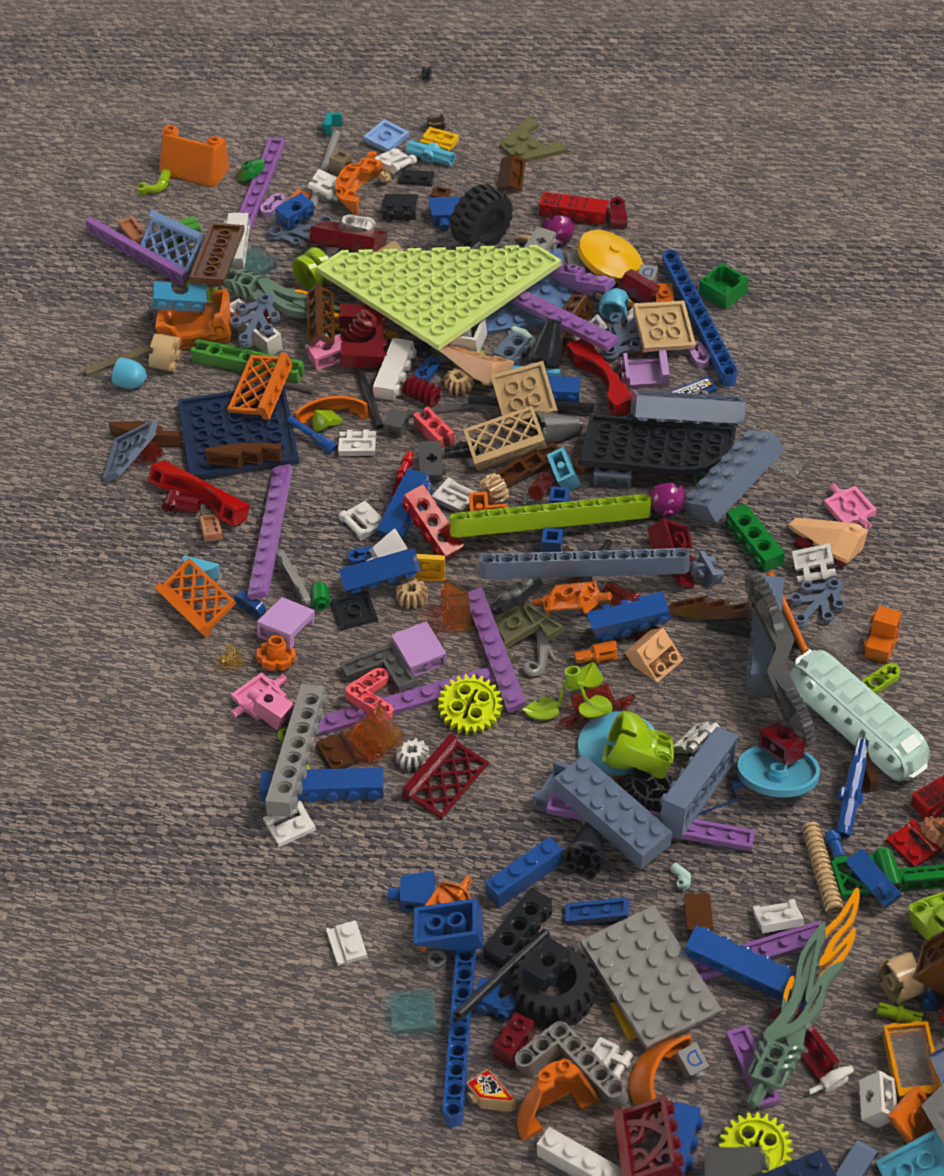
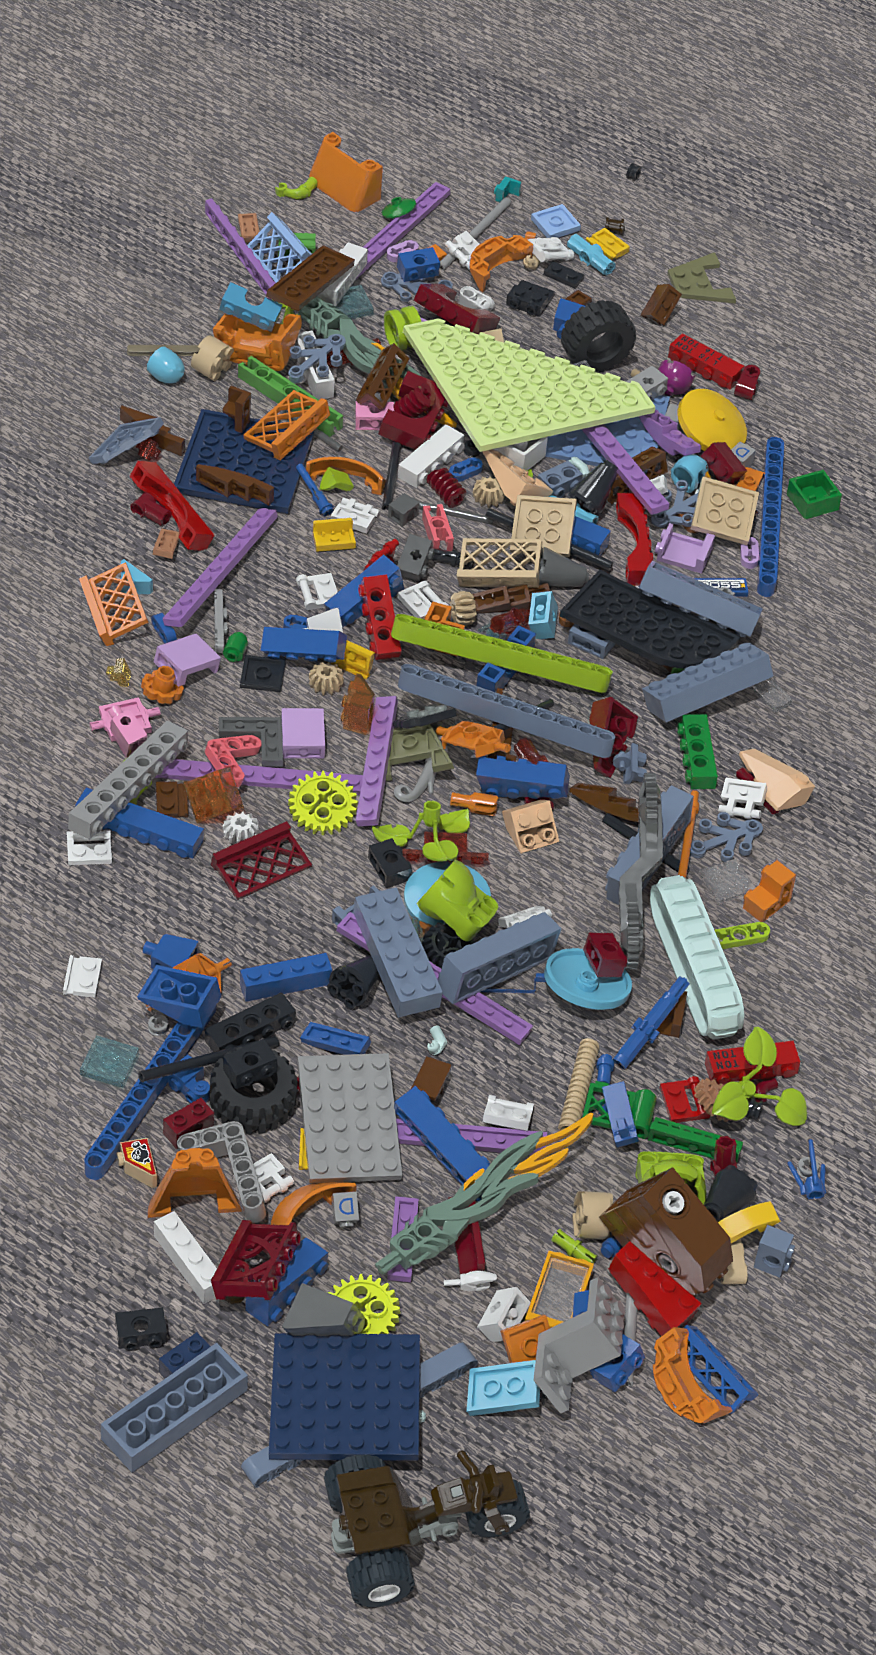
camera: 15 degrees right, 0 degrees up
(213, 386) = (238, 407): none -> reddish brown panel
(338, 161) = (491, 228): dark tan brick -> none
(349, 467) = (333, 534): none -> yellow bracket
(555, 735) = (389, 863): none -> black brick
(667, 499) = (629, 681): magenta cylinder -> none
(850, 506) = (814, 757): bright pink plate -> none

